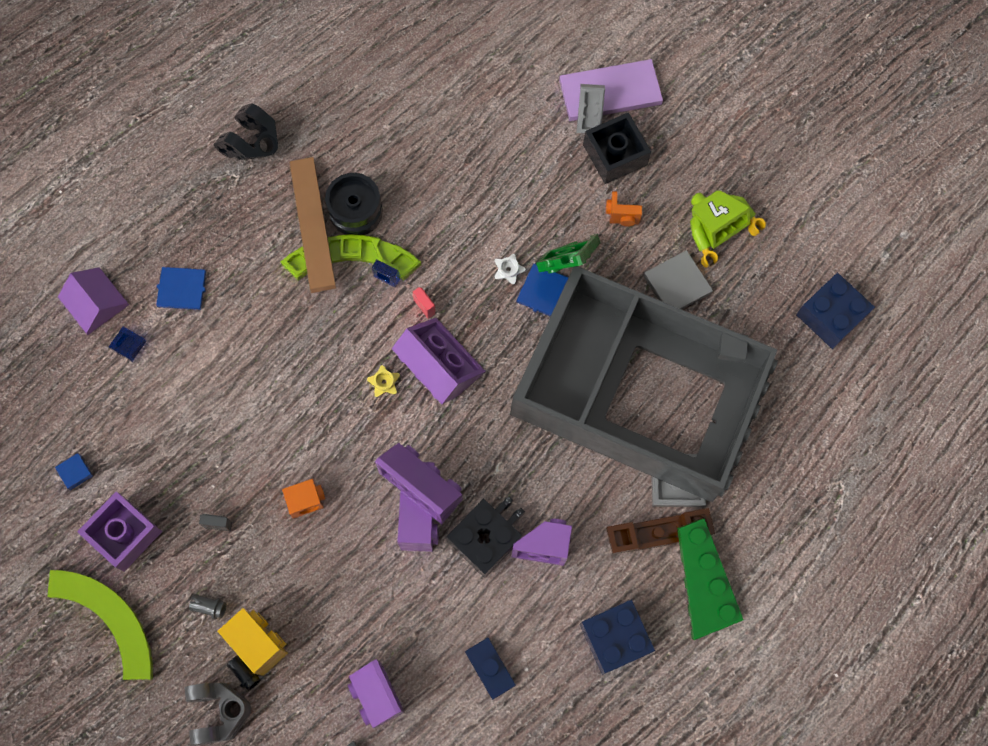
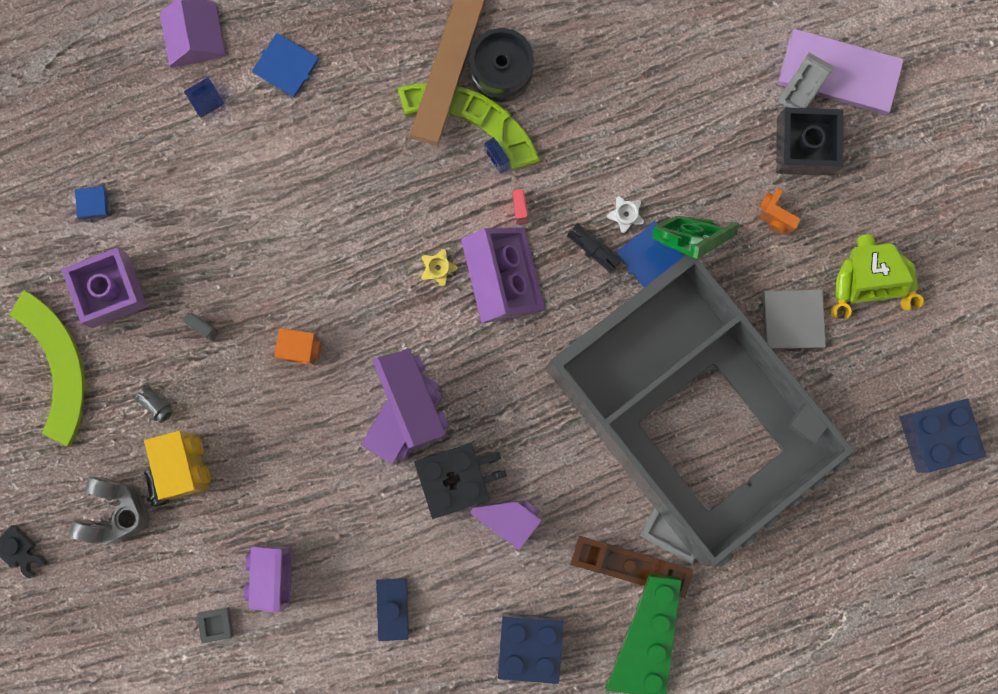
camera: 30 degrees right, 10 degrees up
(498, 305) = (594, 248): none -> black pin

